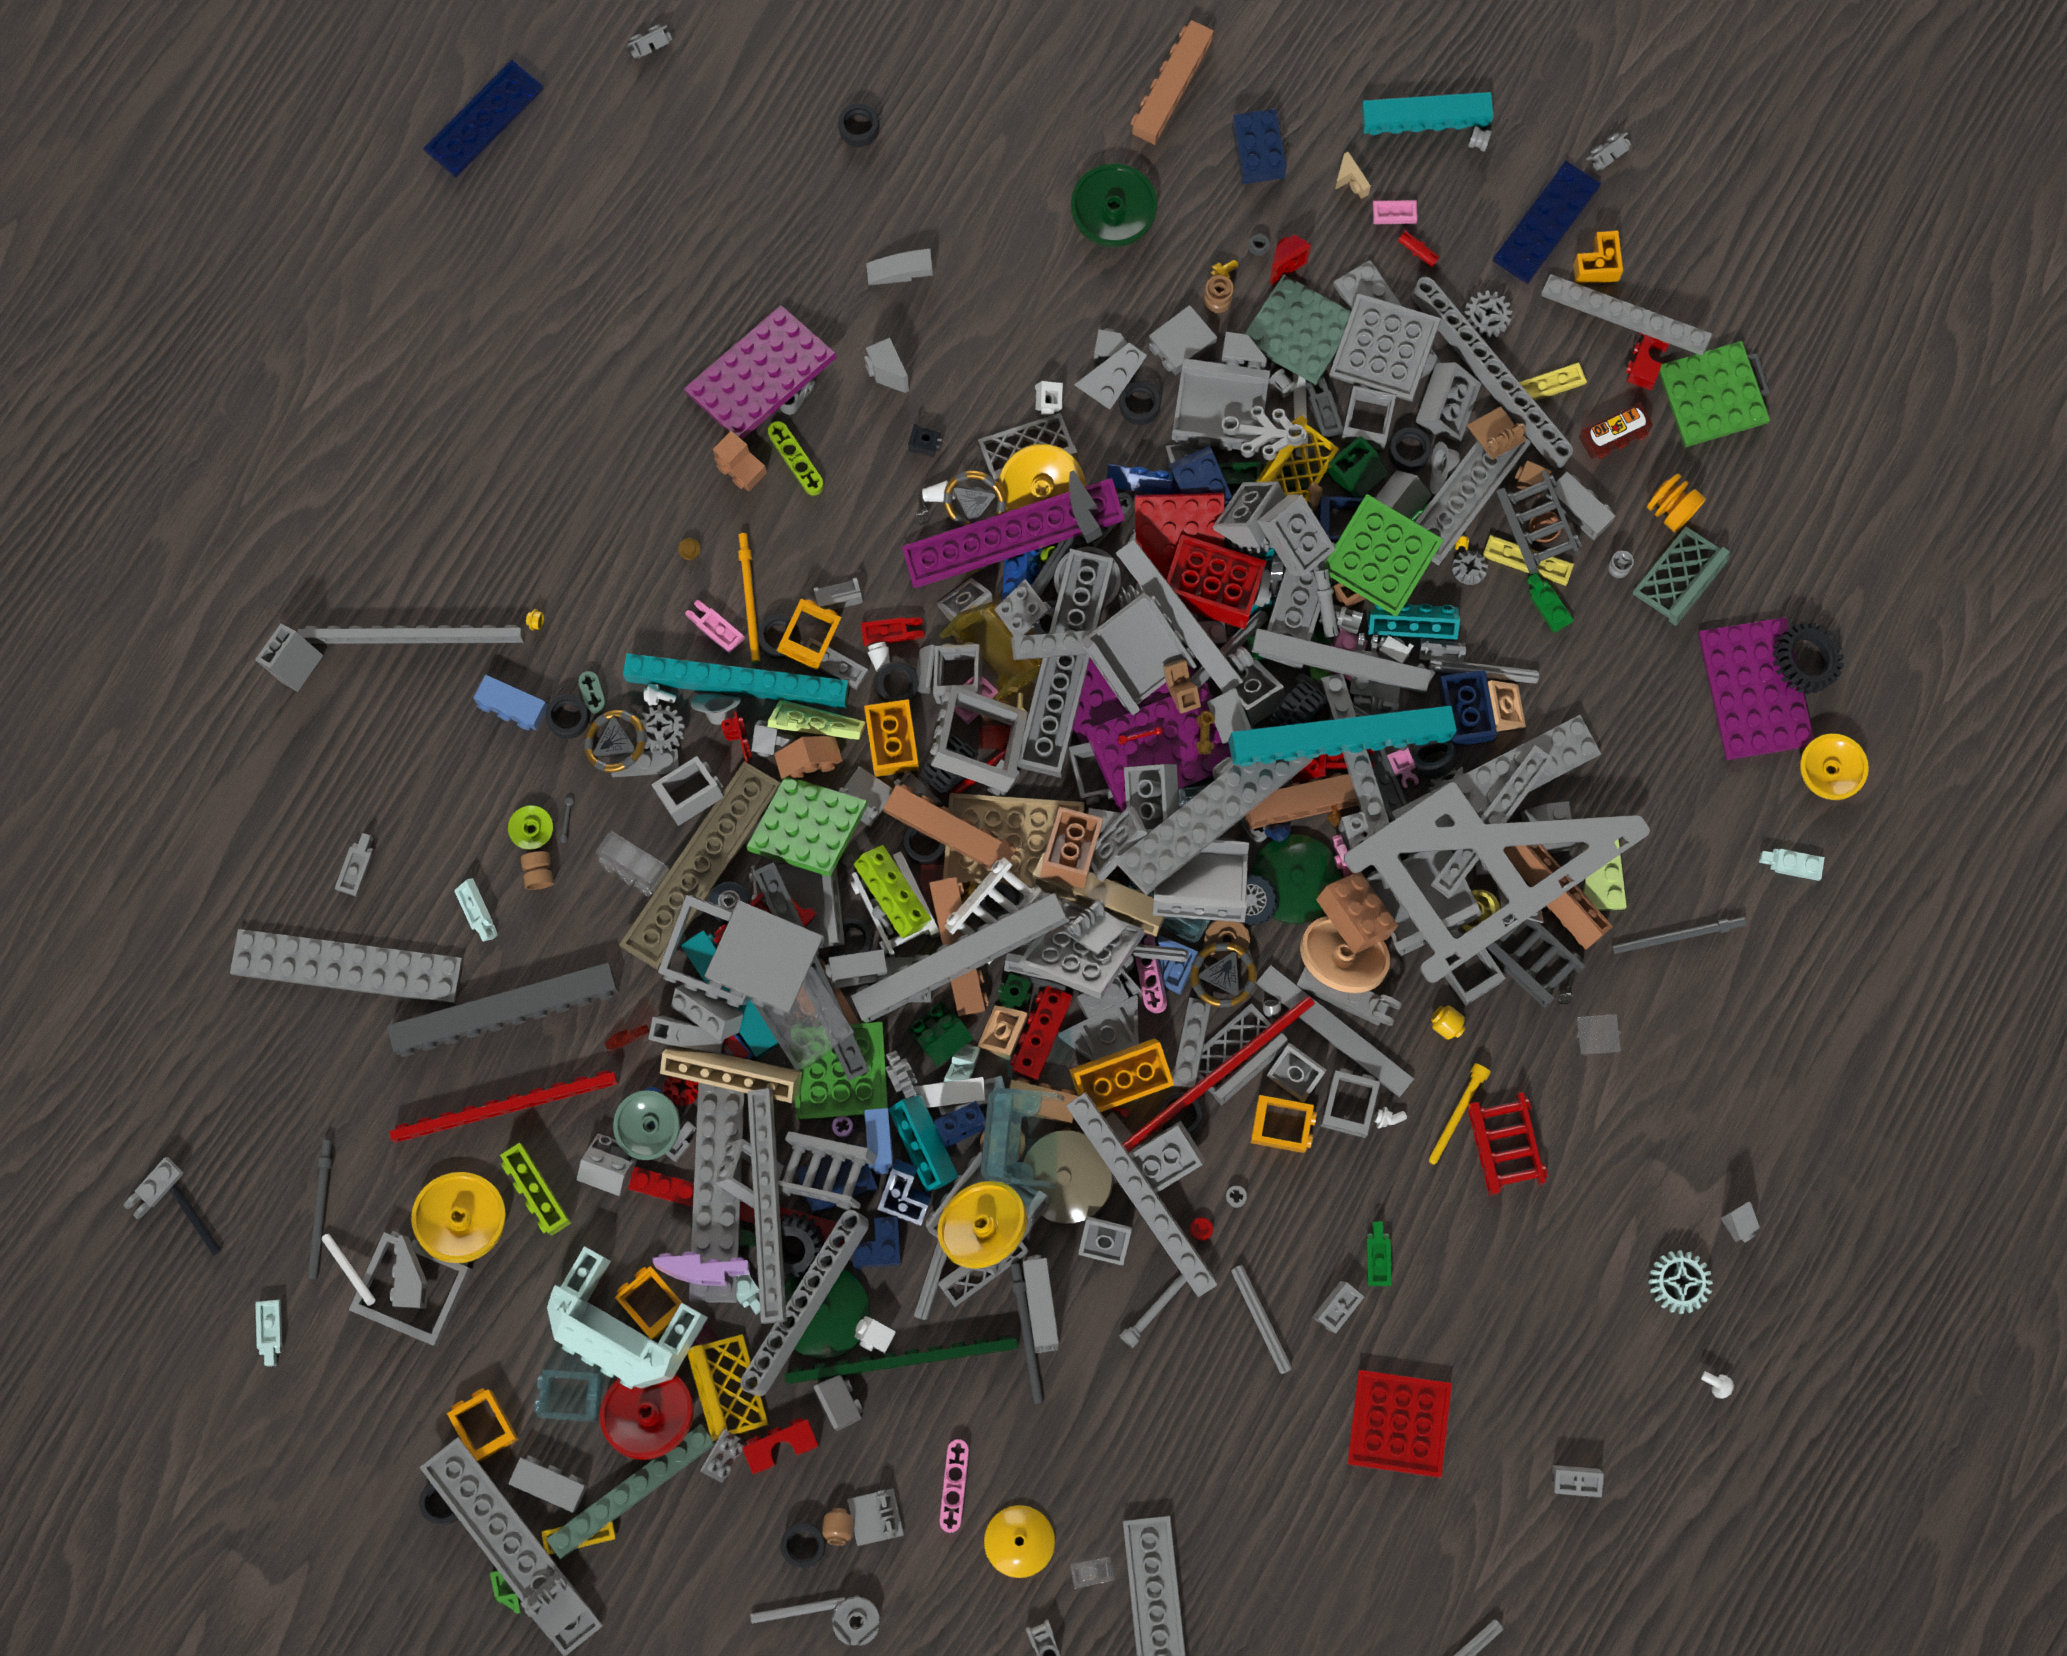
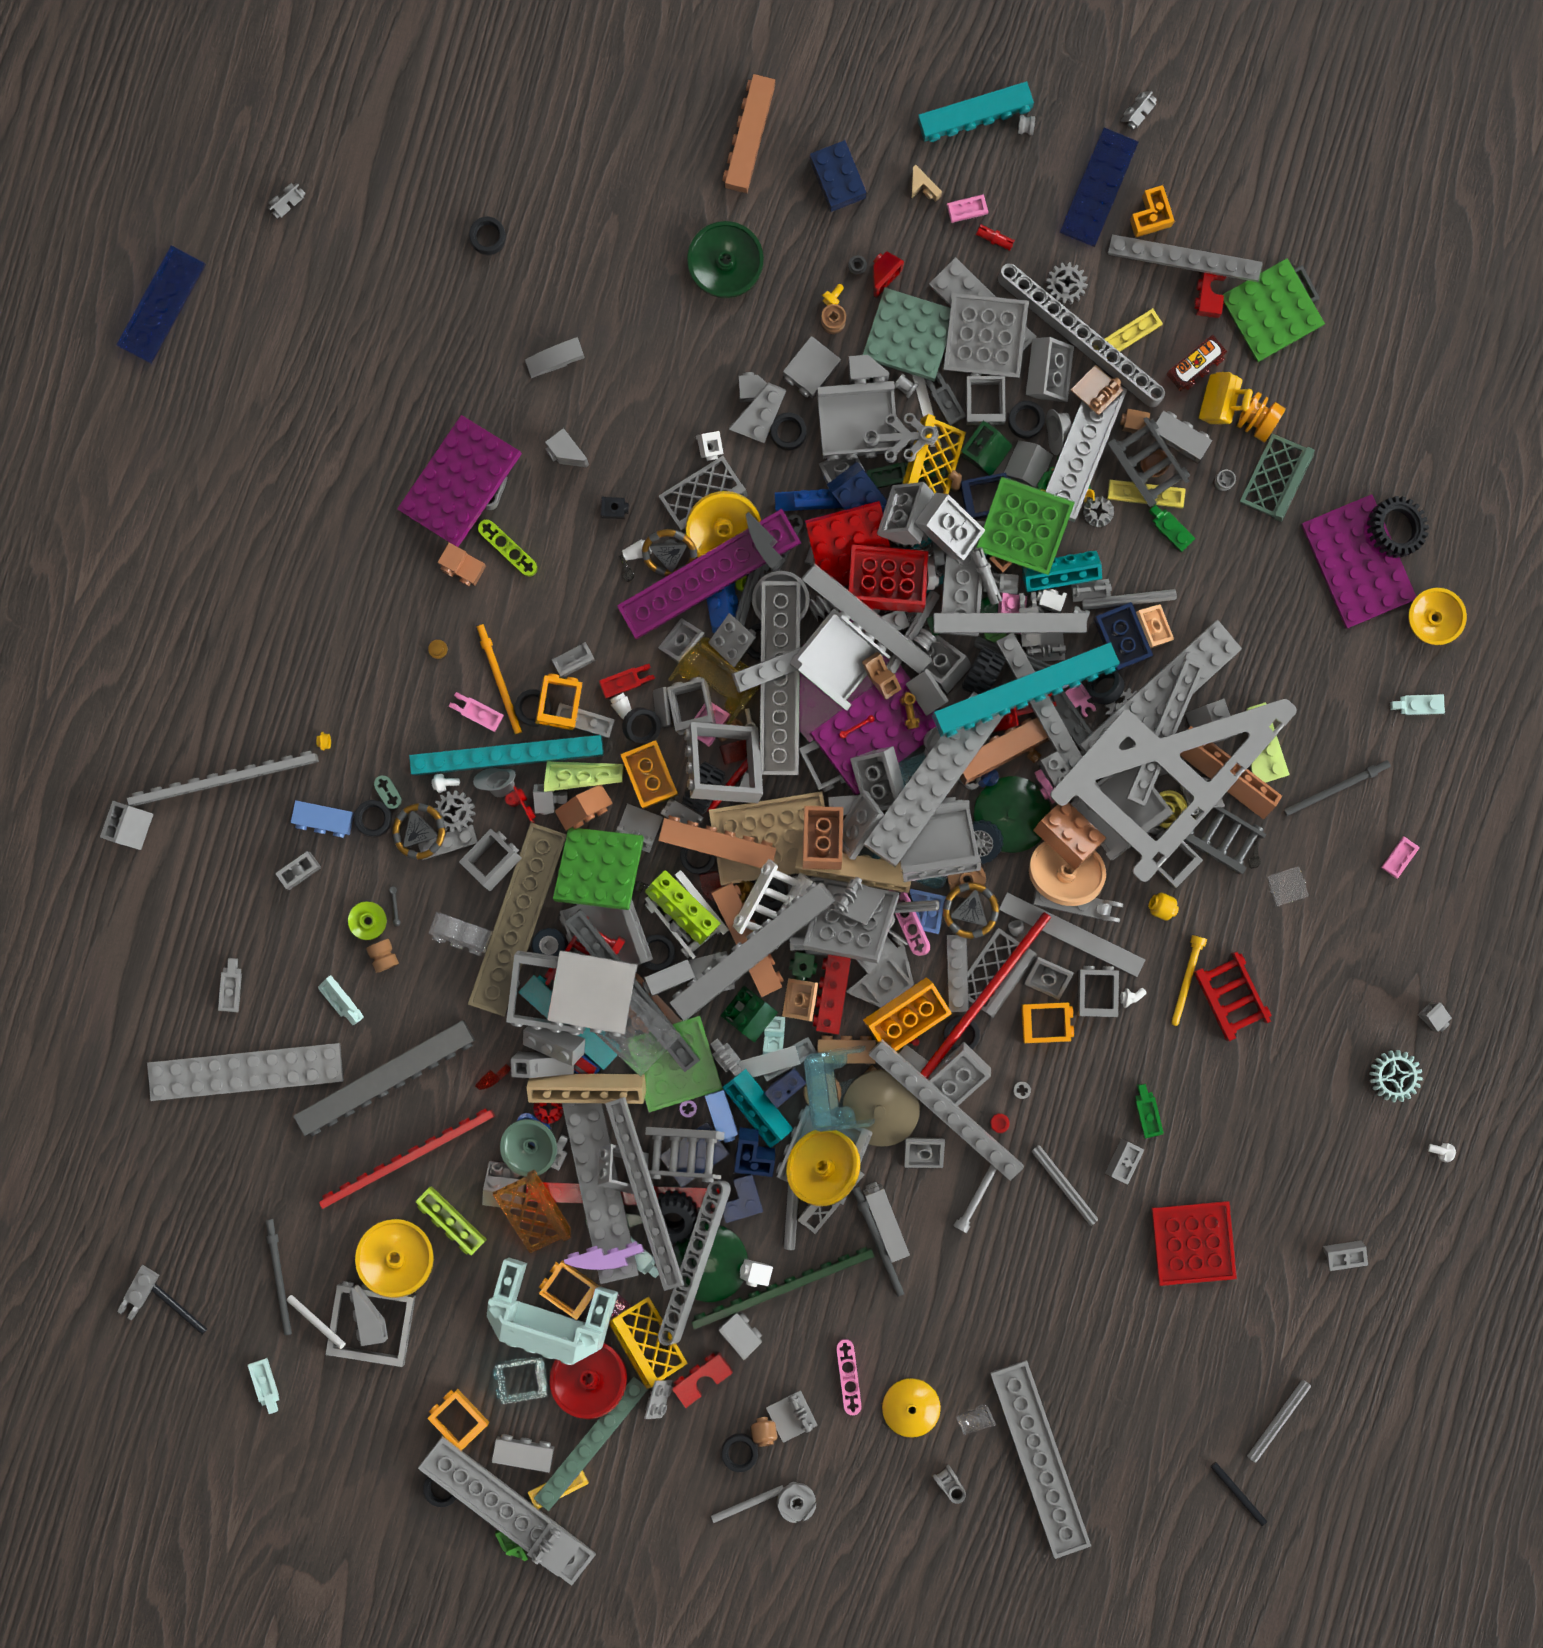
camera: 15 degrees left, 10 degrees up
(467, 753) = (298, 870): none -> light grey brick
(651, 1196) = (548, 1207): none -> clear orange fence
(1636, 473) = (1222, 397): none -> yellow piece
(1736, 1030) = (1400, 857): none -> bright pink plate

